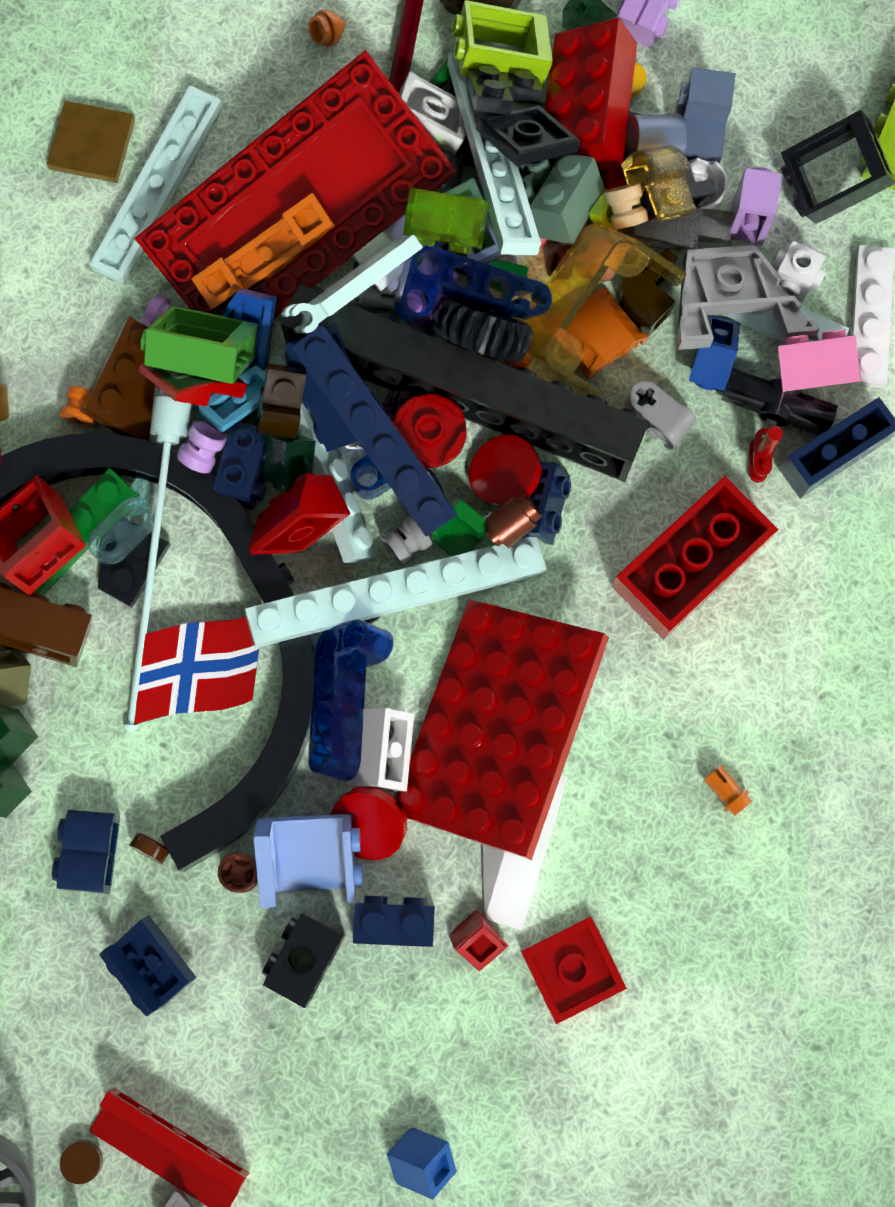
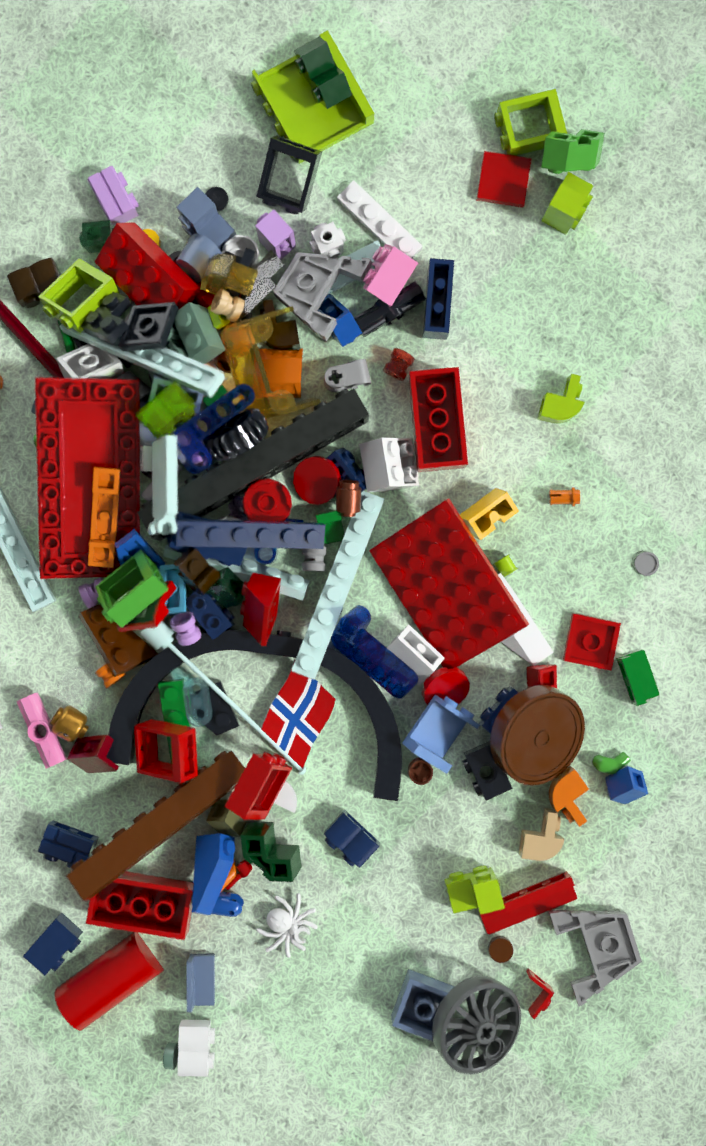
camera: 55 degrees left, 10 degrees up
(72, 699) = (258, 786): none -> red window
(82, 731) = (287, 797): none -> white tile
(133, 1062) = (474, 890): none -> lime brick
(147, 966) = (432, 850): dark blue bracket -> none
(149, 848) = (373, 806): reddish brown tile -> none
(259, 1108) = (542, 844): none -> tan brick
(352, 1082) = (564, 791): none -> orange brick
(397, 984) = (537, 735): none -> reddish brown brick
(432, 1120) = (610, 765): none -> bright green arm
(575, 1068) = (638, 677): none -> green panel
(582, 782) = (505, 565): none -> lime axle
(593, 542) = (389, 464): none -> white slope
(643, 708) = (487, 510): none -> yellow brick
(723, 462) = (398, 364): none -> clear red wheel
(729, 964) = (646, 563): none -> light grey piece
(742, 117) = (218, 197): none -> black piece
(762, 451) = (410, 341): red piece -> none
(832, 700) = (563, 408): none -> lime brick

